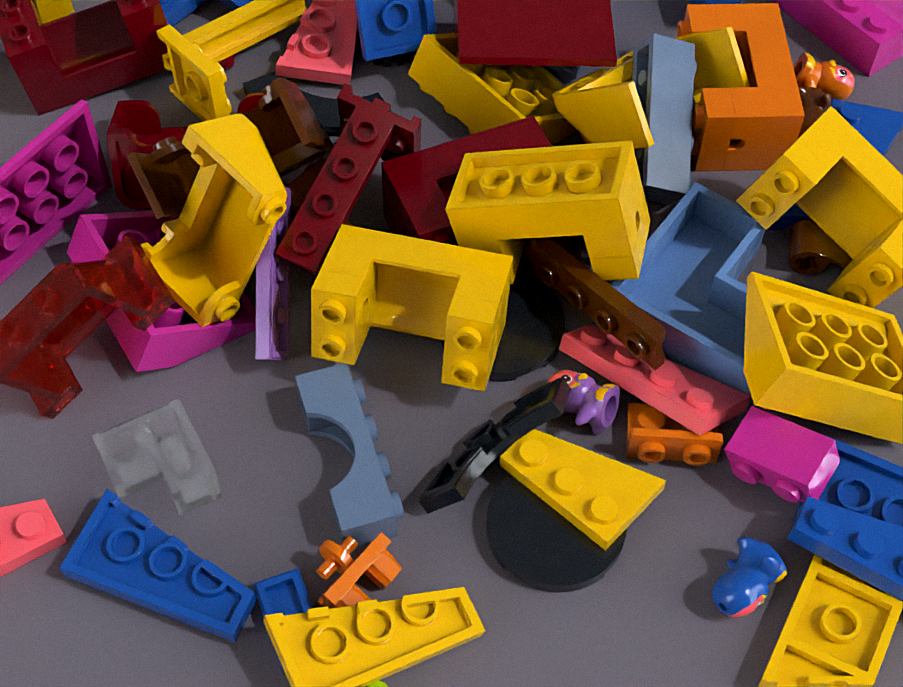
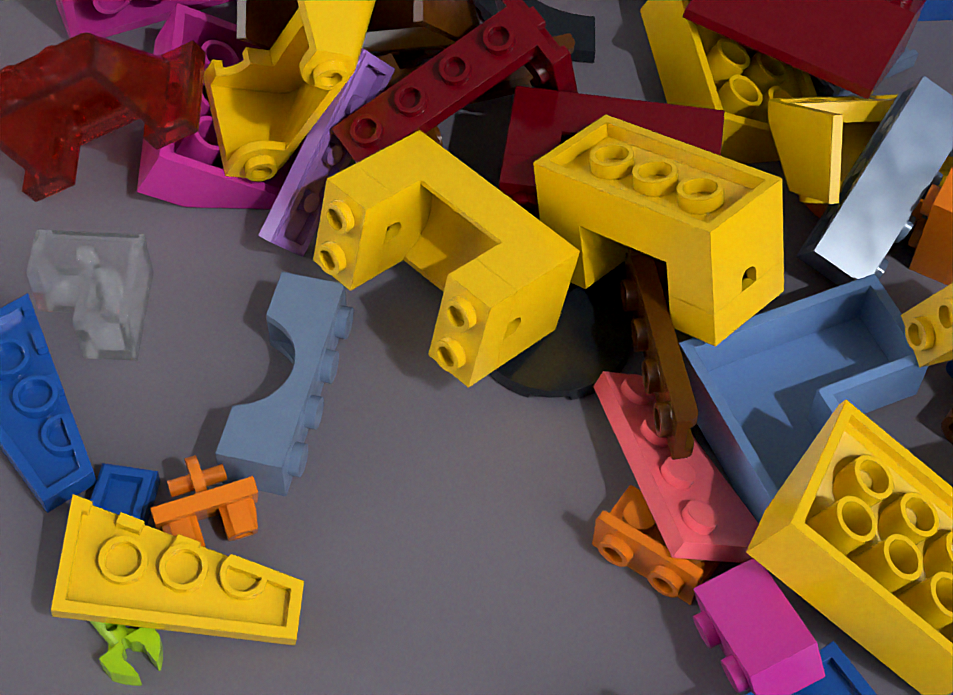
camera: 30 degrees right, 0 degrees up
(454, 481) = (442, 445): black tile -> none
(543, 544) = (457, 573): black tile -> none
(582, 485) = (510, 546): yellow wing -> none
(590, 401) = (580, 453): medium lavender animal -> none

